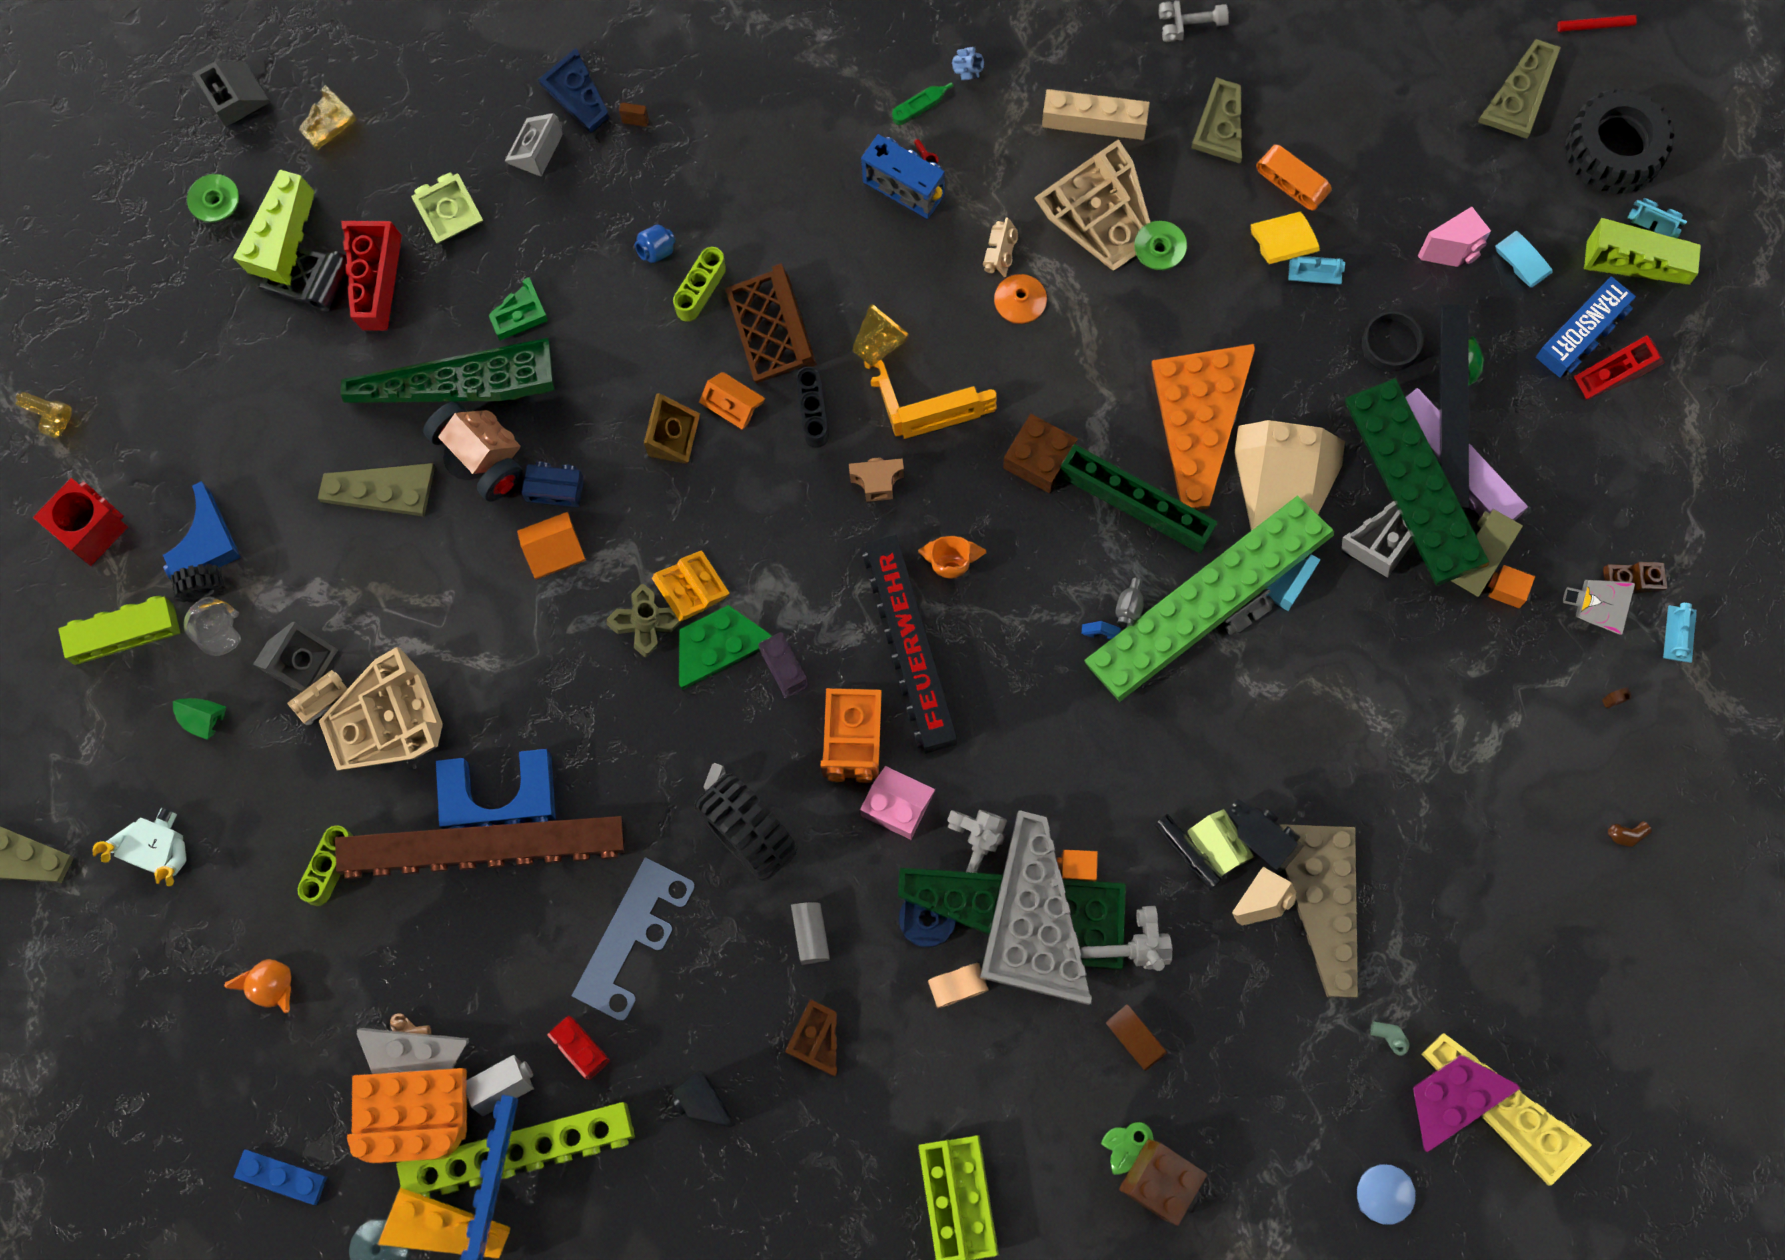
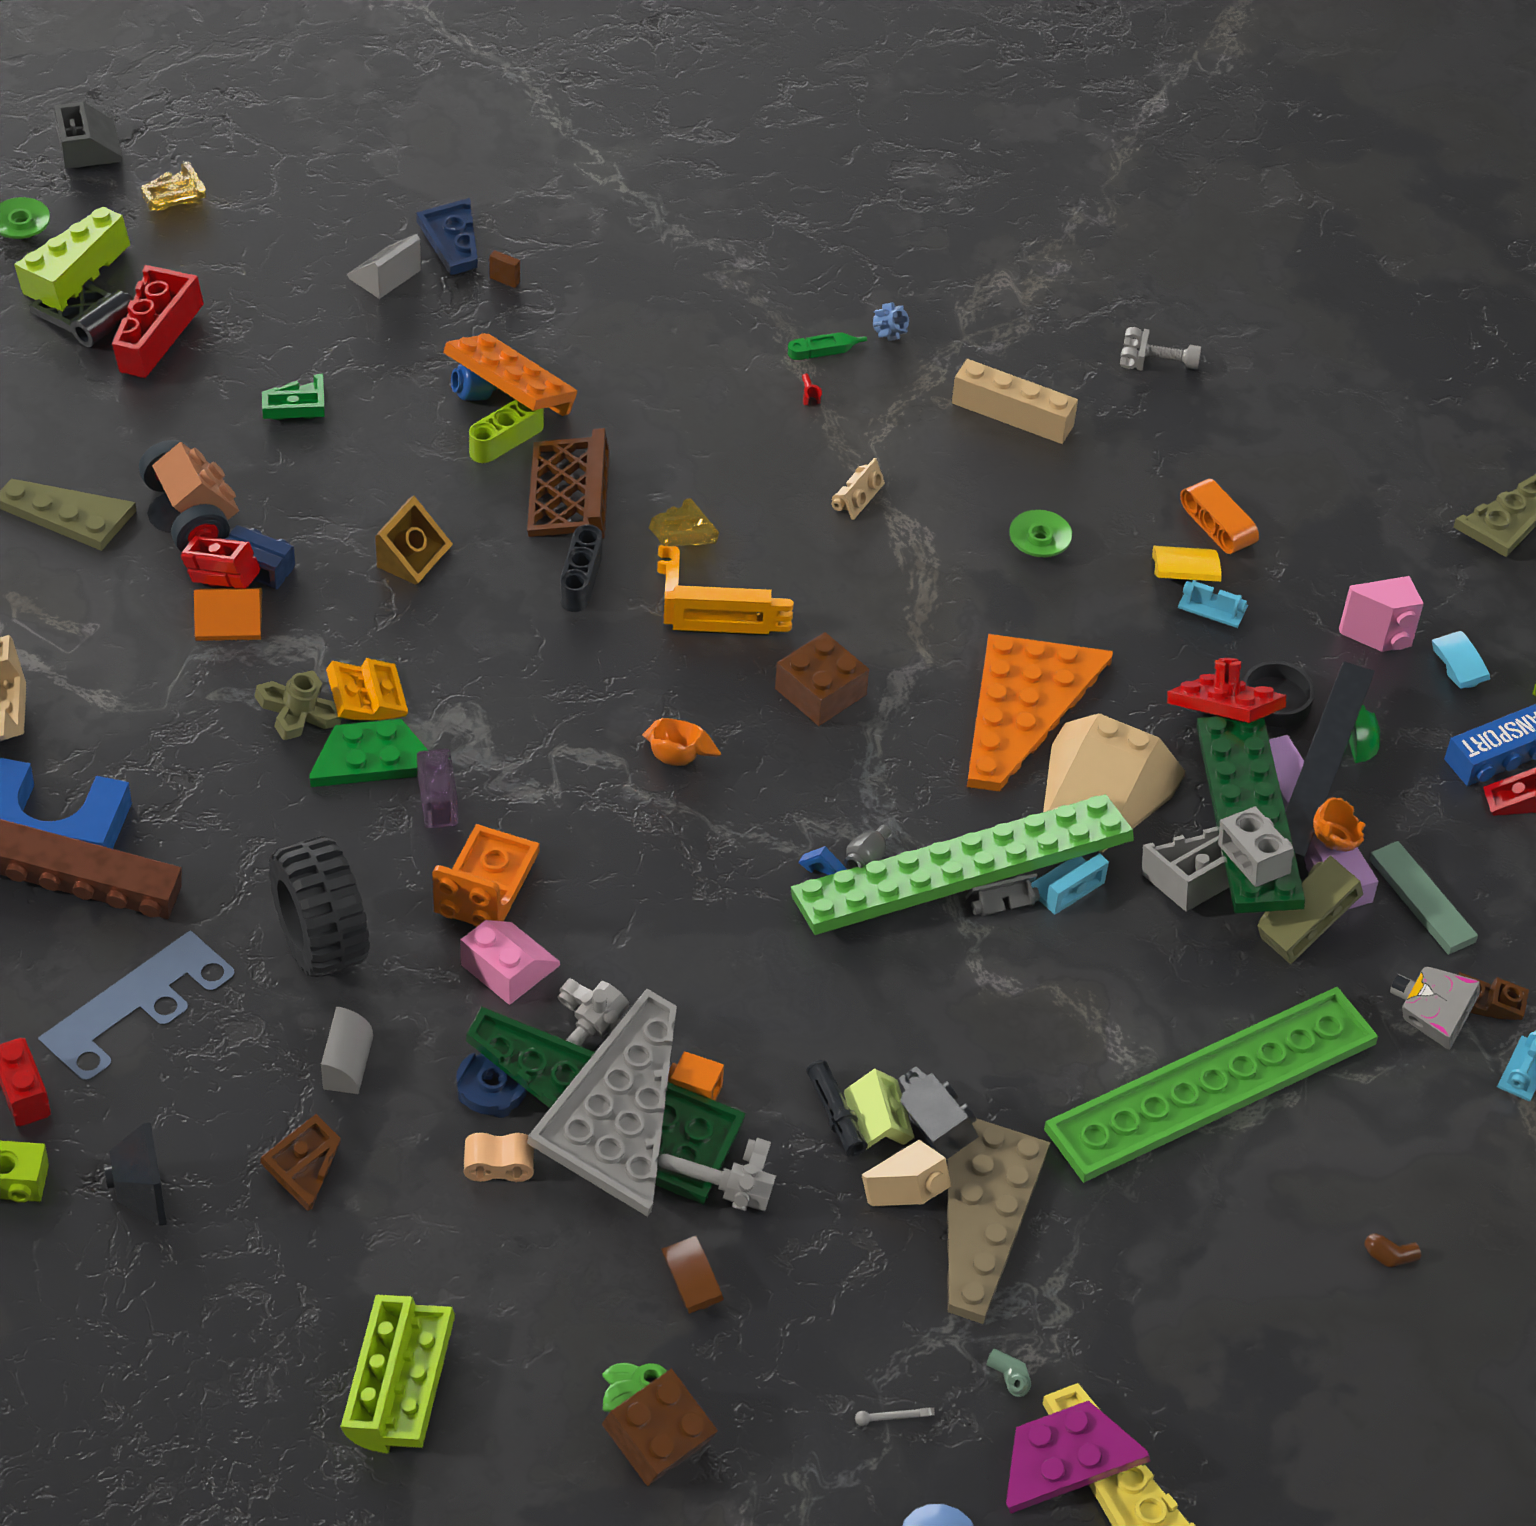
camera: 10 degrees right, 25 degrees down
(446, 207) = (263, 290): yellowish green plate -> none
(475, 376) = (231, 436): dark green wing -> none
(529, 507) = (220, 562): none -> red brick
(684, 231) = (512, 373): none -> orange bracket
(730, 399) = (491, 538): orange panel -> none
(877, 477) = (625, 650): medium nougat brick -> none
(903, 175) = (774, 391): blue piece -> none
(910, 644) = (592, 814): black brick -> none
(1020, 309) = (862, 543): orange dish -> none
(1099, 205) = (985, 477): tan wedge -> none
(1137, 498) = (917, 749): dark green brick -> none
(1221, 122) = (1154, 448): olive wing -> none
(1340, 1091) = (863, 1418): none -> light grey hinge
(1361, 369) = (1226, 694): none -> red plate
(1434, 533) = (1255, 846): none -> light grey brick
(1455, 731) = (1209, 1084): none -> bright green plate
(1487, 472) = (1338, 826): none -> orange hair
(1510, 586) = (1331, 958): orange brick -> none
(1559, 500) = (1423, 897): none -> sand green tile
(1617, 697) = (1424, 1106): reddish brown tile -> none

